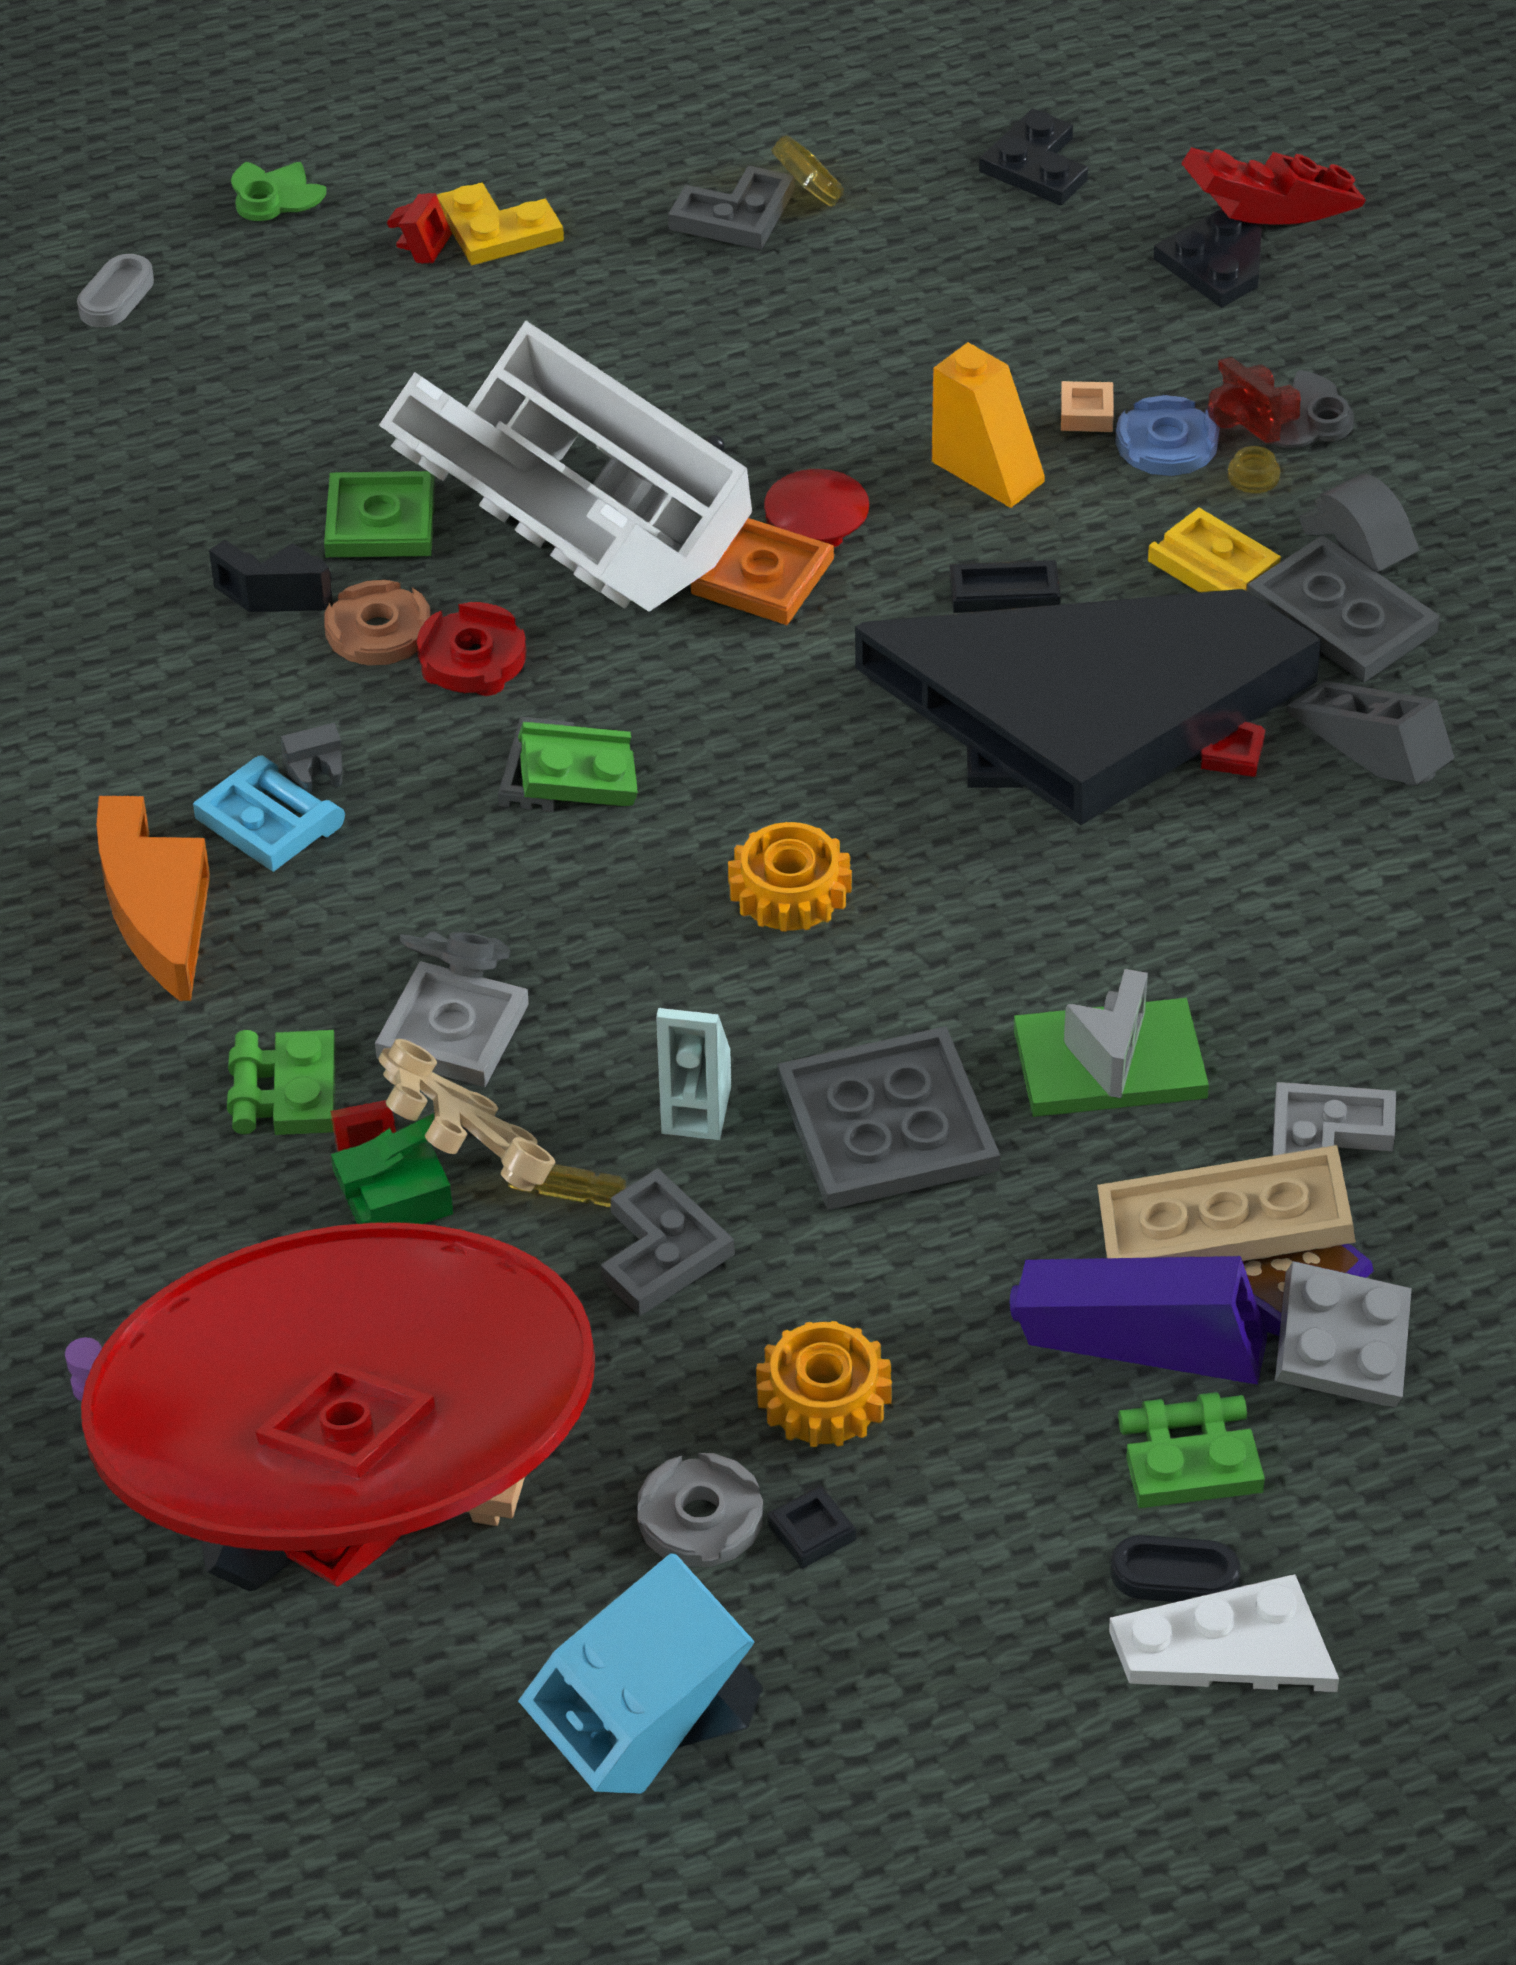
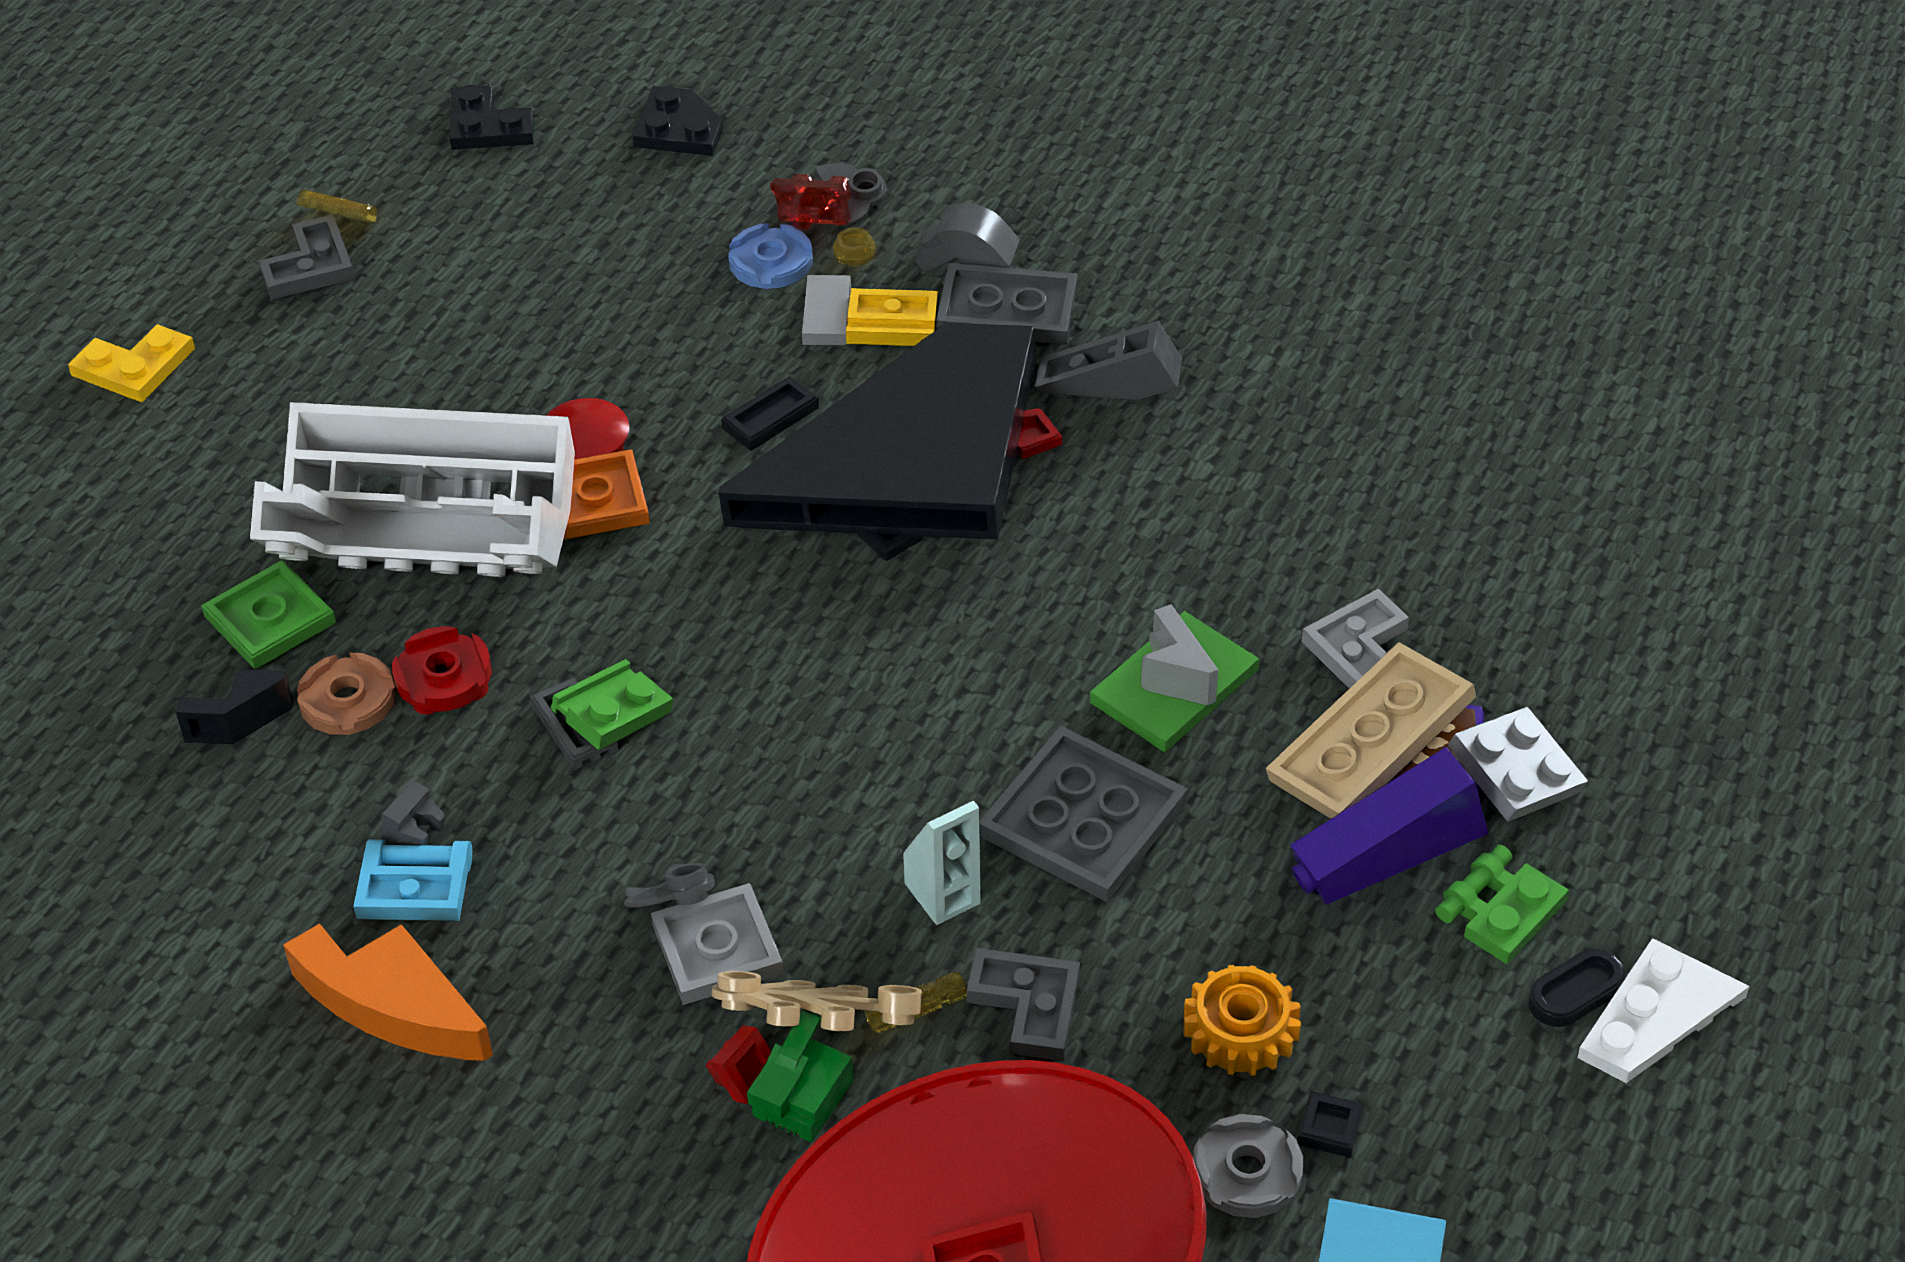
camera: 40 degrees left, 0 degrees up
(302, 1082) = (646, 1056): bright green plate -> none
(422, 226) = (84, 391): red tile -> none
(789, 876) = (845, 691): light orange gear -> none
(982, 426) = (662, 311): light orange slope -> none
(1087, 406) = (701, 264): light nougat plate -> none
(1160, 513) = (826, 309): none -> light grey tile
(1273, 193) = (681, 57): red slope -> none

